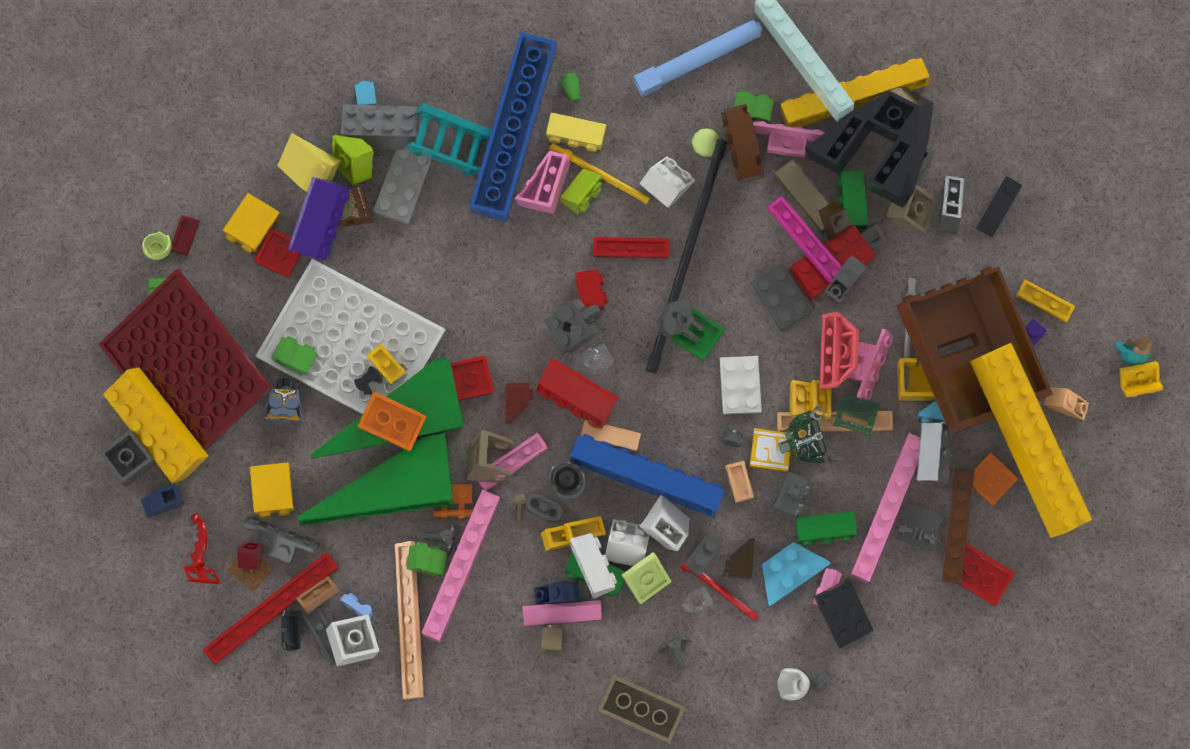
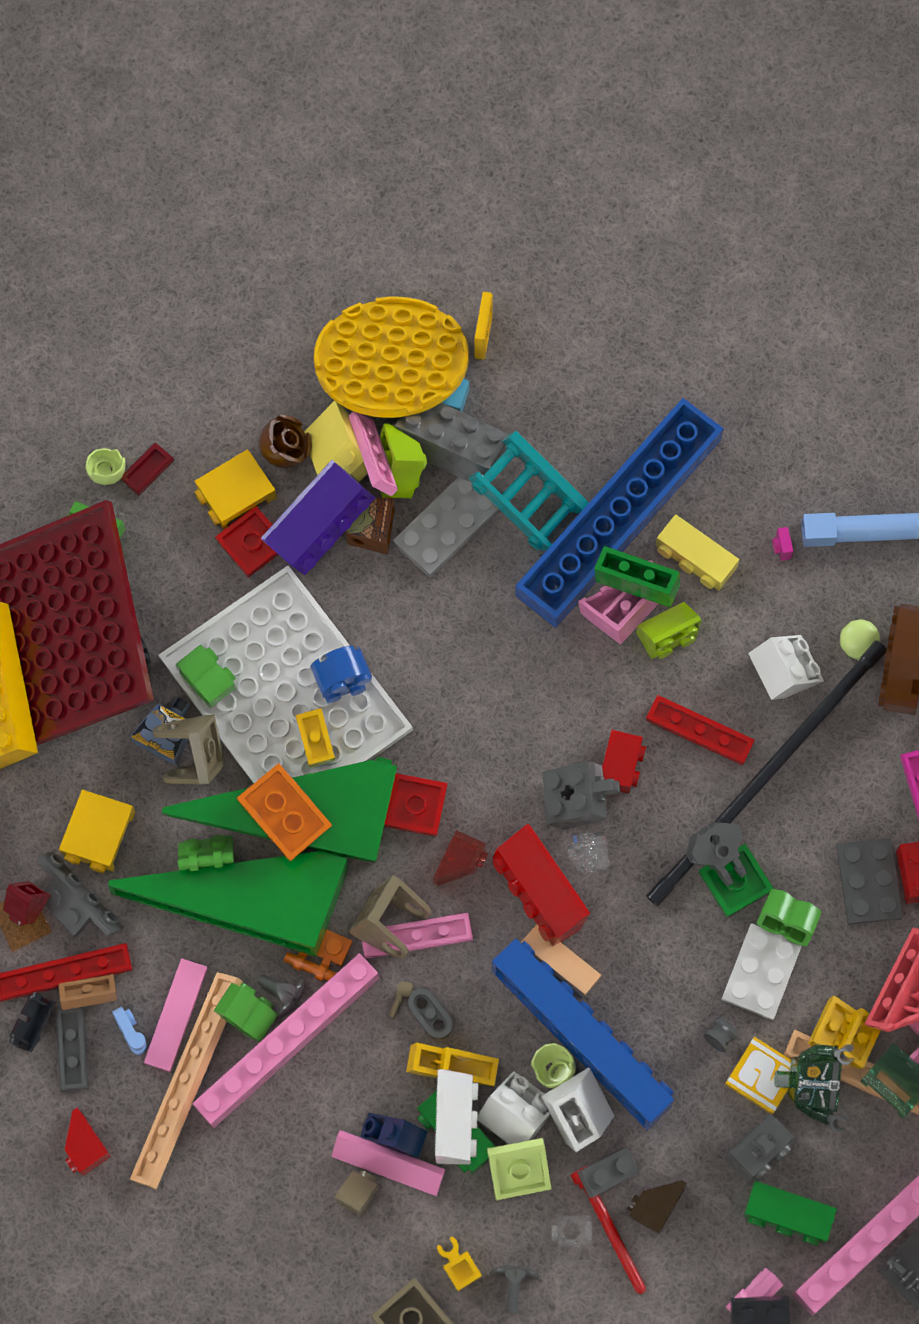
camera: 30 degrees right, 5 degrees down
(270, 177) = (284, 442): none -> reddish brown cylinder
(313, 88) = (391, 357): none -> yellow tile
(314, 396) = (205, 746): none -> dark tan hose
(334, 159) = (373, 453): none -> bright pink tile
(350, 471) = (205, 852): none -> bright green plate
(352, 640) = (101, 1071): white brick -> none
(362, 383) = (274, 748): black piece -> none
(363, 691) = (83, 1145): none -> red slope
(365, 39) = (483, 325): none -> yellow tile
(381, 583) = (175, 1015): none -> bright pink tile
(384, 314) = (341, 673): none -> blue brick
(547, 166) = (637, 576): none -> green brick
(569, 487) = (467, 999): dark grey helmet -> none
(571, 86) = (718, 493): bright green cone -> none
(606, 177) = (710, 627): yellow bar -> none
(628, 101) = (782, 544): none -> dark pink plate
(638, 657) = (460, 1268): none -> yellow plate
(640, 498) = (560, 1058): none -> yellowish green hair
(739, 481) = (702, 1098): light nougat tile -> none
(742, 343) = (789, 917): none -> bright green brick
(790, 570) = (715, 1248): medium azure wing -> none

